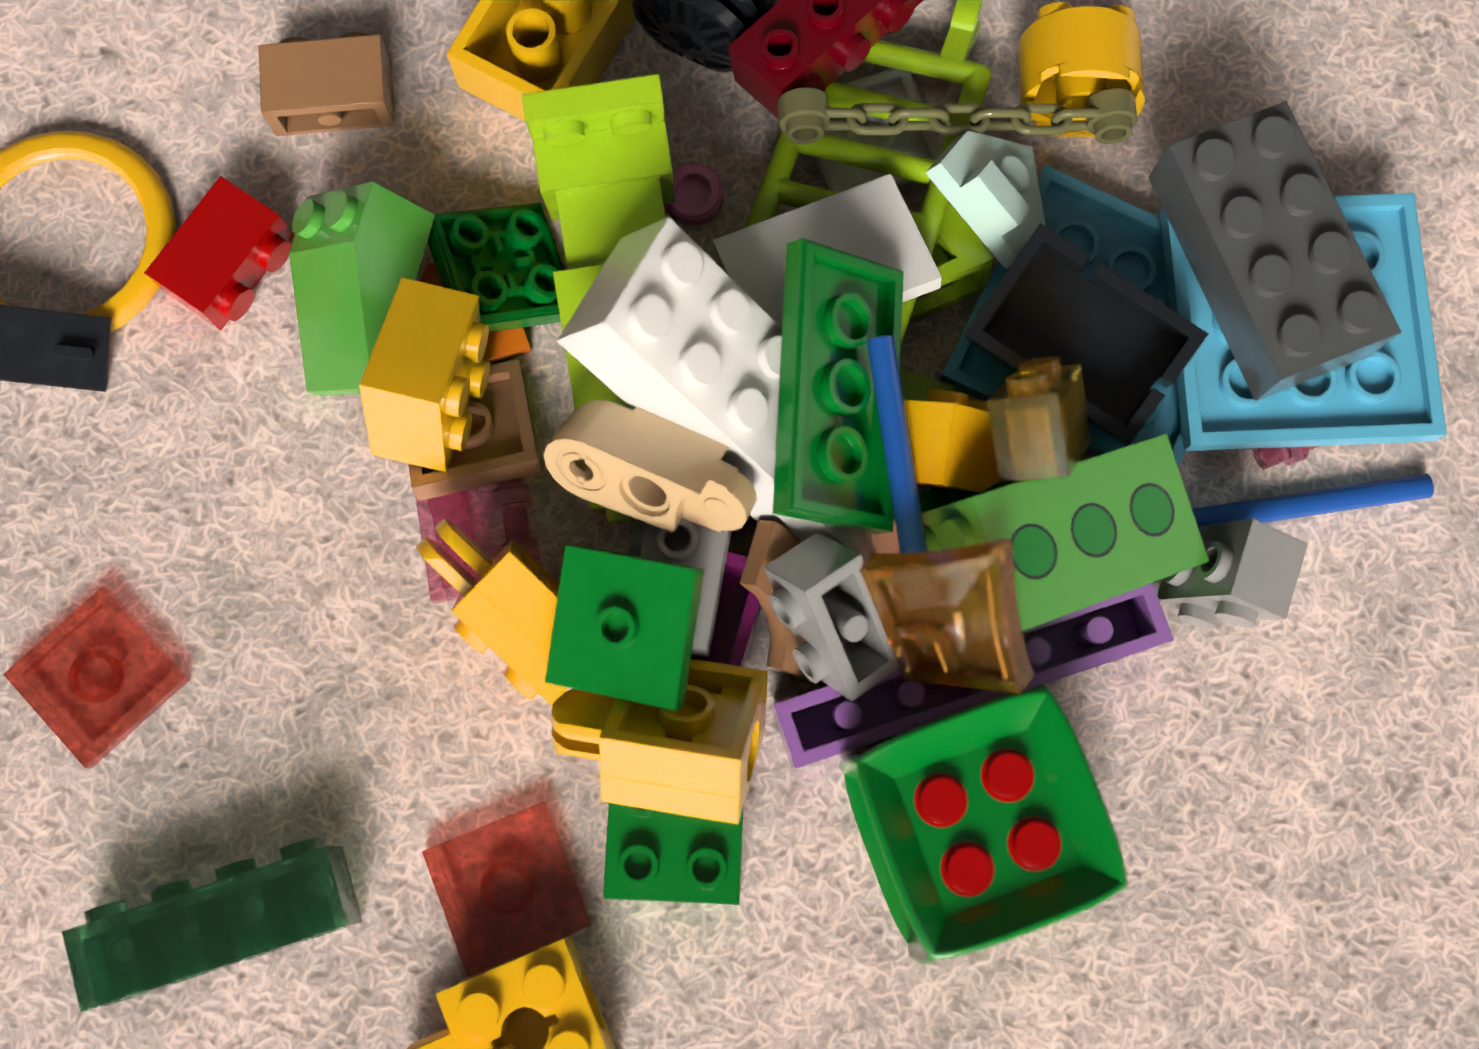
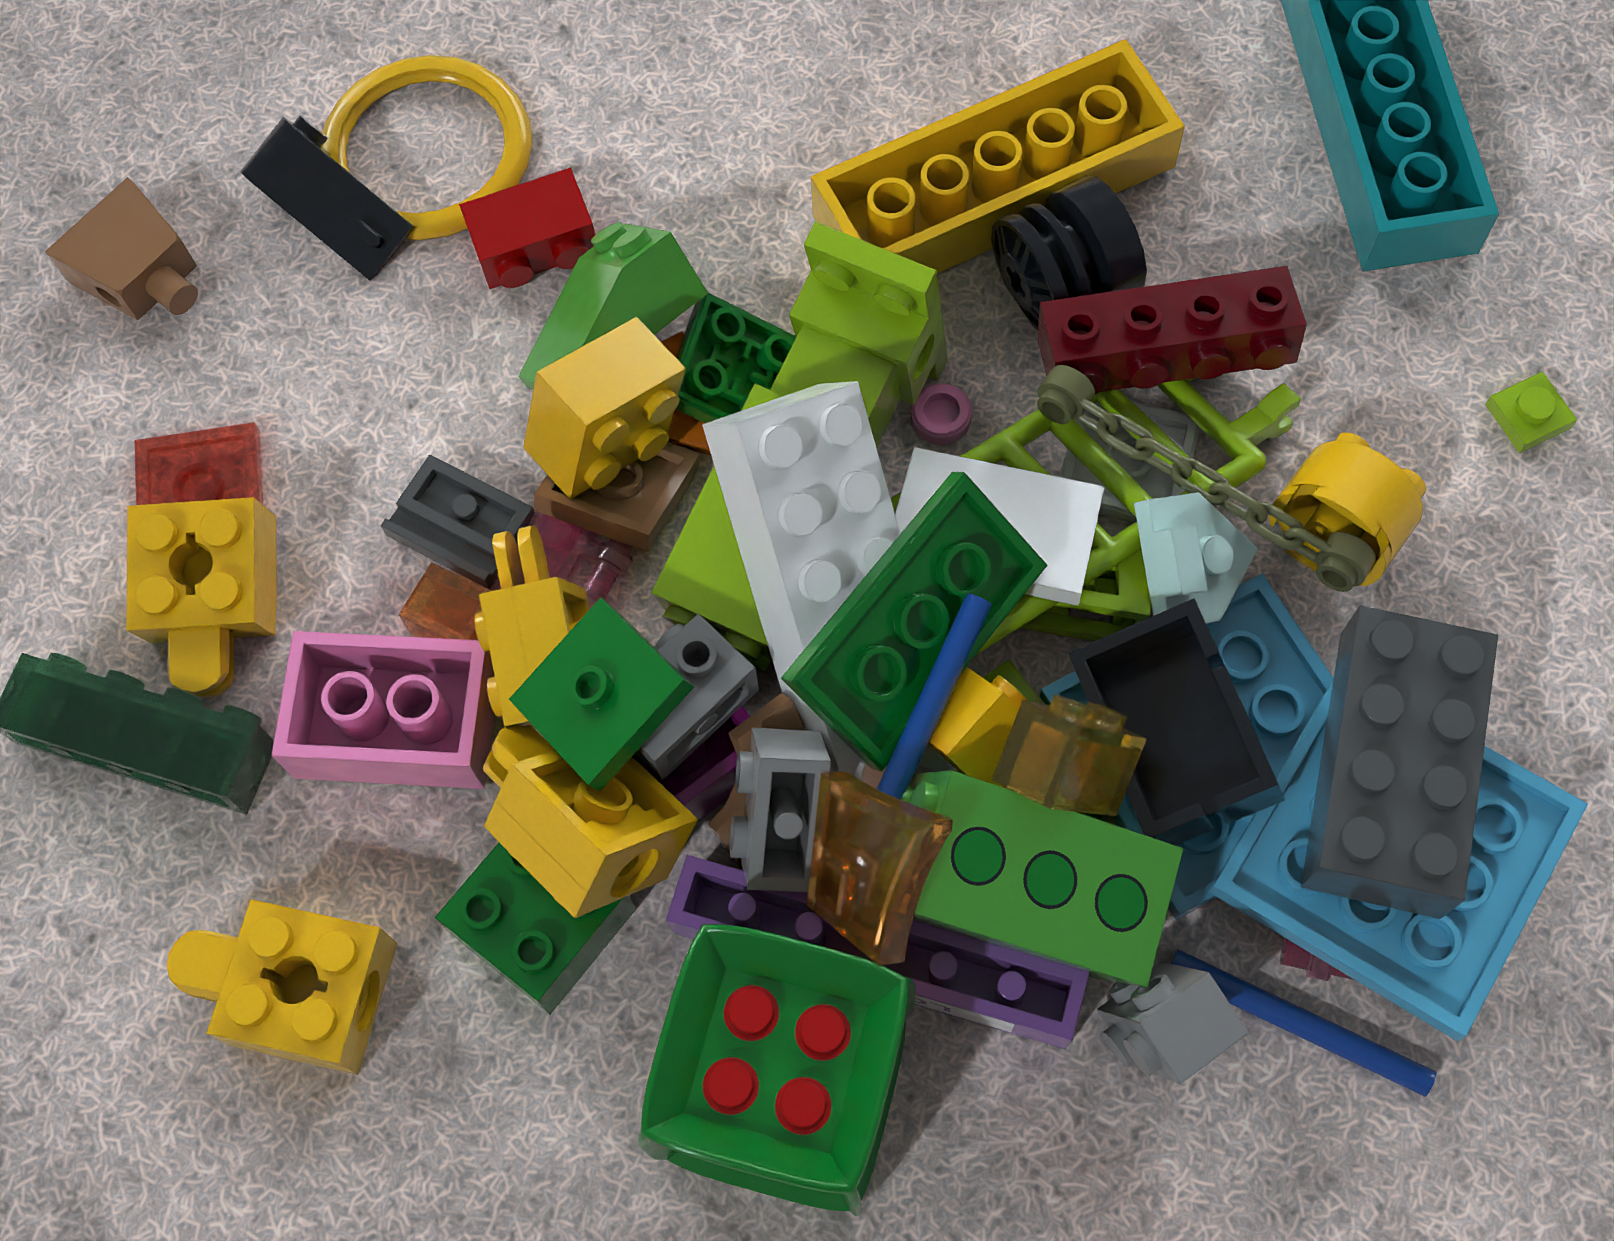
camera: 40 degrees right, 10 degrees down
(170, 759) = (223, 591): none -> yellow brick
(326, 84) = (707, 150): medium nougat brick -> none
(354, 552) = (455, 518): none -> dark grey plate
(414, 635) = (442, 606): none -> clear orange brick
(421, 755) = (385, 710): none -> bright pink brick
(507, 888) = (377, 864): clear red tile -> none
(648, 468) = (710, 580): tan piece -> none

